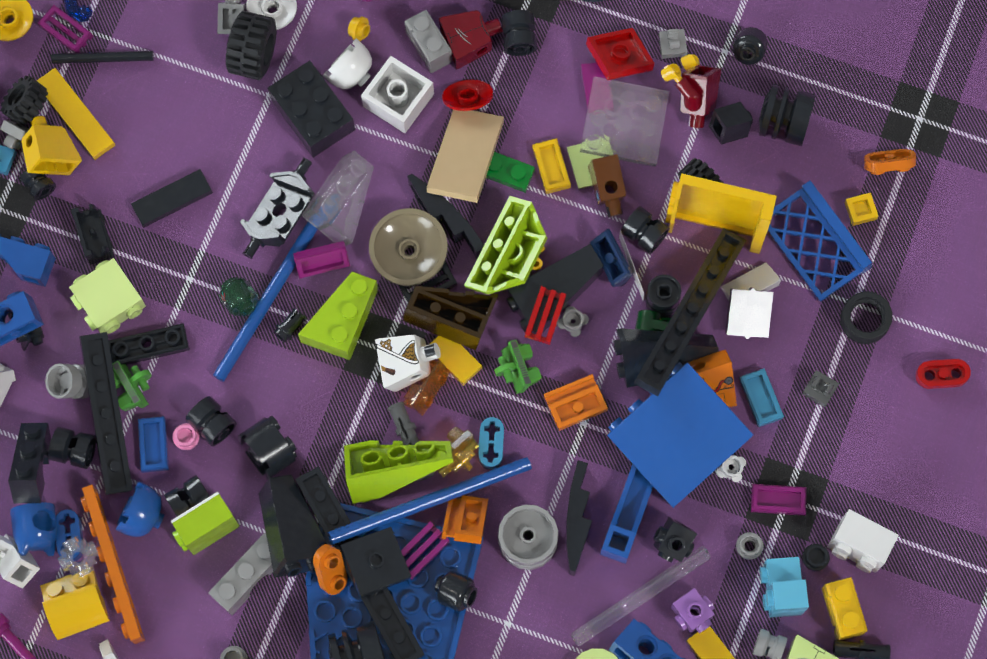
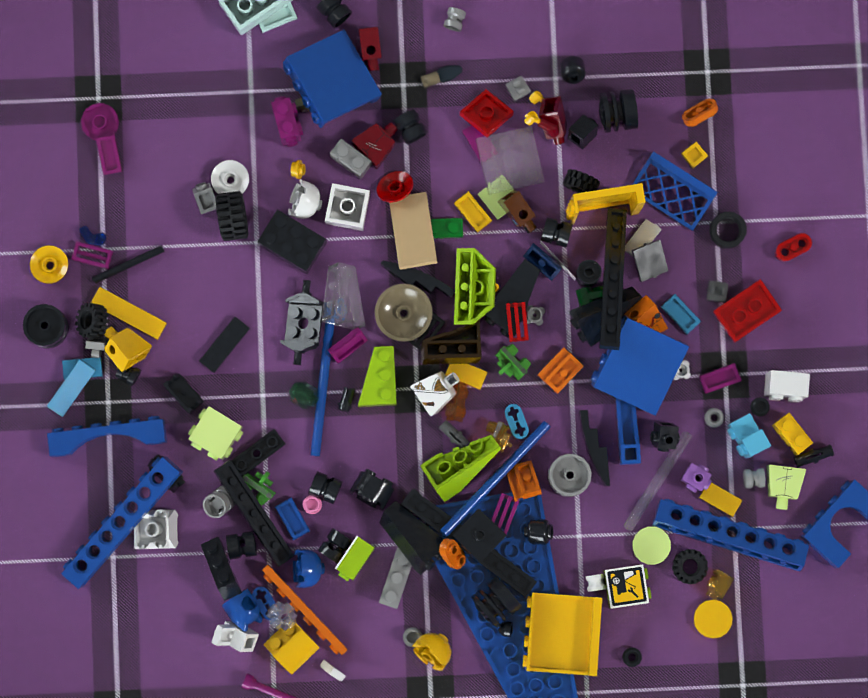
camera: 30 degrees left, 10 degrees up
(849, 428) = (747, 310): none -> red plate

